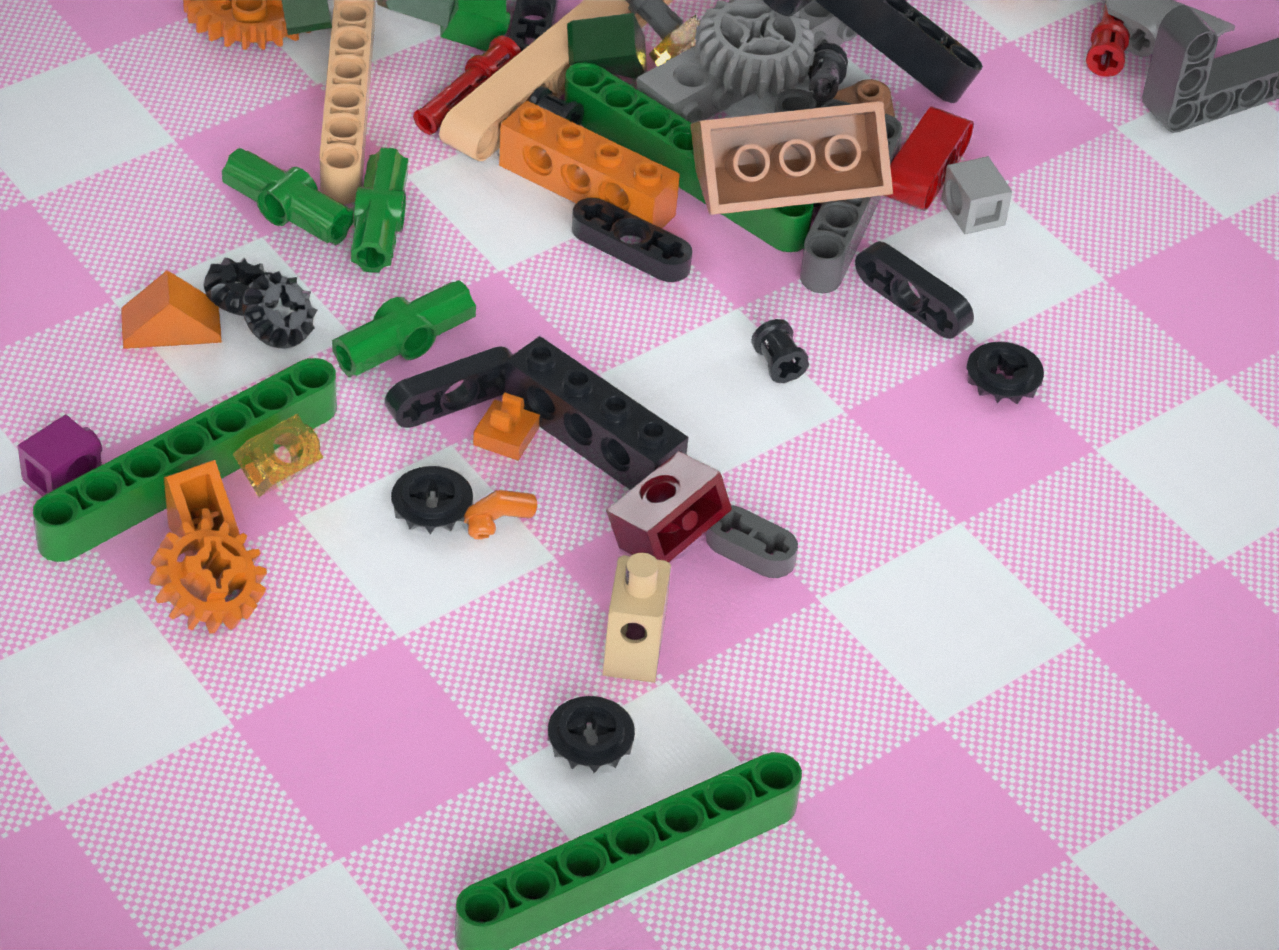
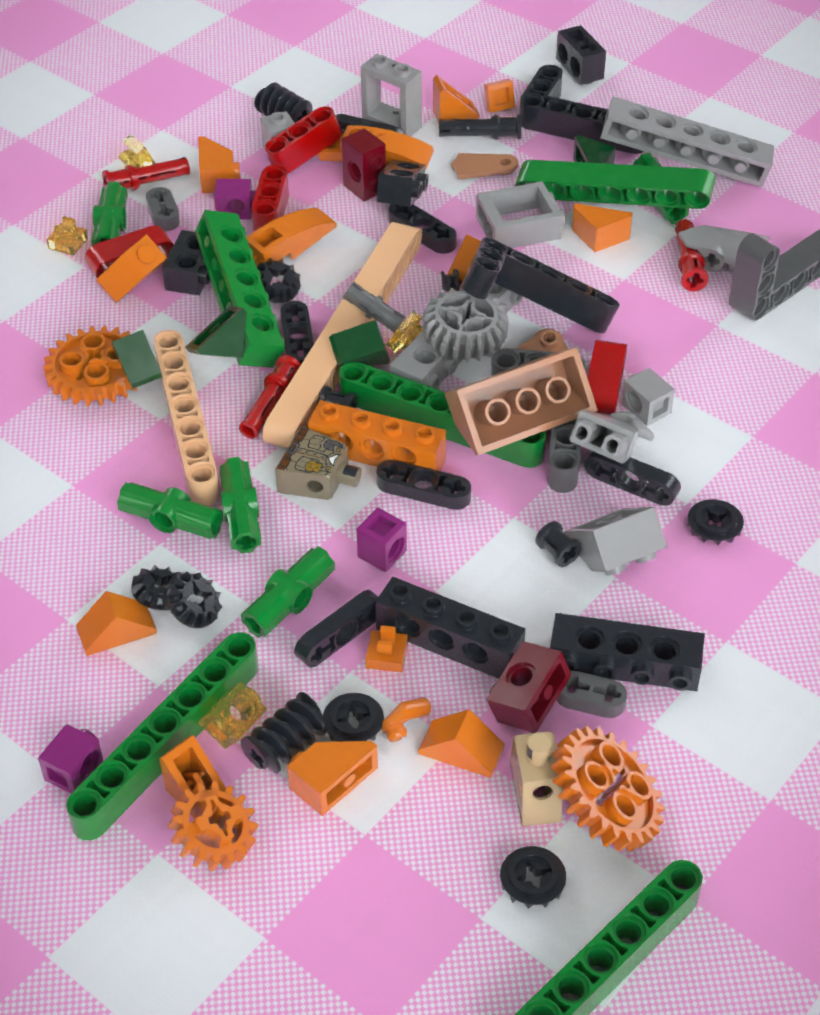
camera: 10 degrees left, 0 degrees up
(336, 491) = (283, 733): none -> black piece
(380, 550) = (330, 771): none -> orange slope
(494, 184) = (315, 466): none -> dark tan torso
(545, 291) = (381, 539): none -> magenta brick
(563, 559) = (463, 742): none -> orange slope
(738, 685) = (628, 808): none -> orange gear
(821, 500) = (630, 651): none -> black brick
(832, 71) = (521, 334): black pin -> none
(863, 362) = (619, 539): none -> light grey slope
(896, 227) = (609, 434): none -> light grey hips

